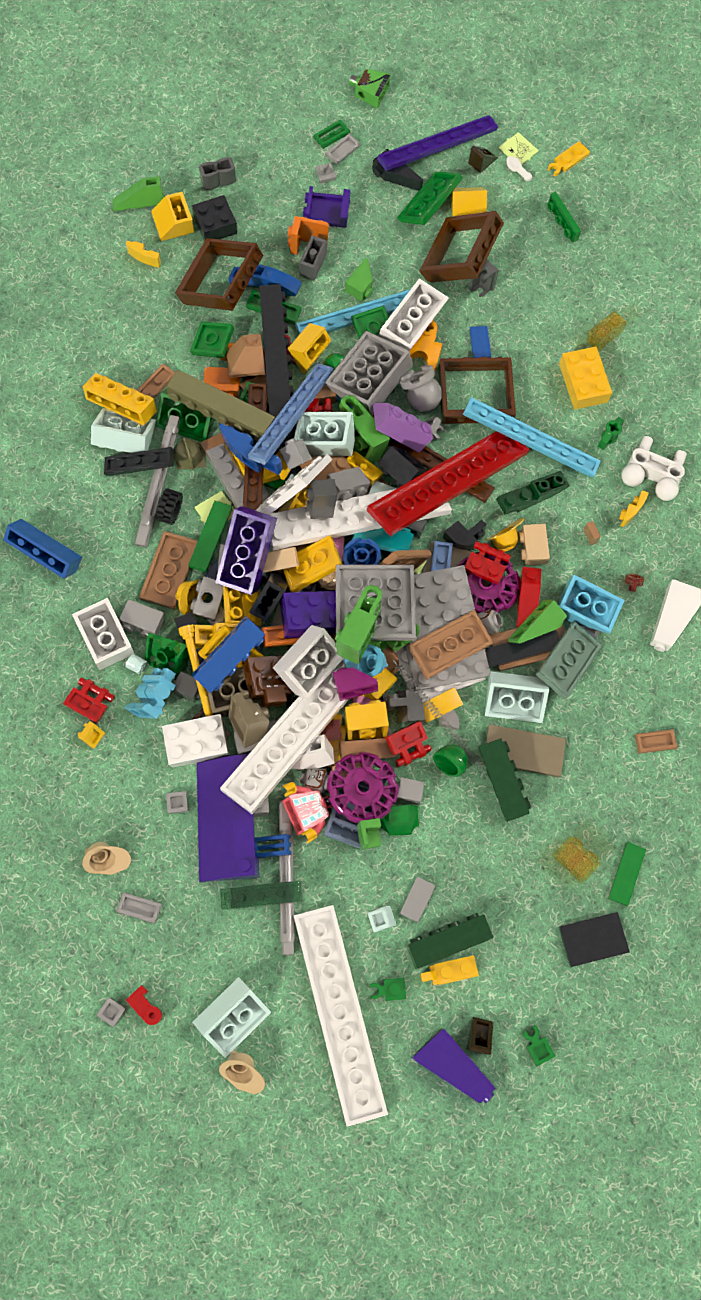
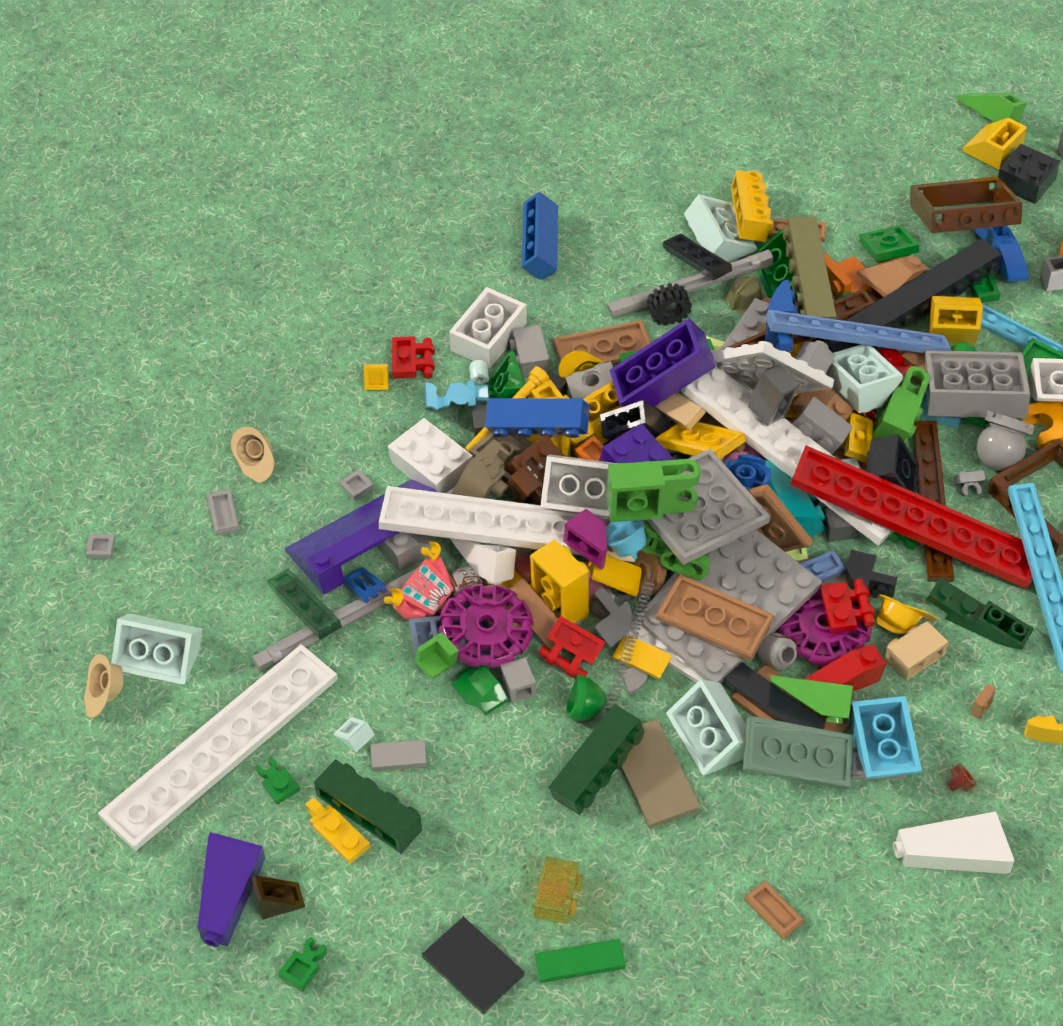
camera: 65 degrees right, 20 degrees down
(138, 251) = (930, 143): yellow slope -> none
(150, 1014) = (122, 566): red leg -> none
(402, 426) = (935, 439): medium lavender slope -> none

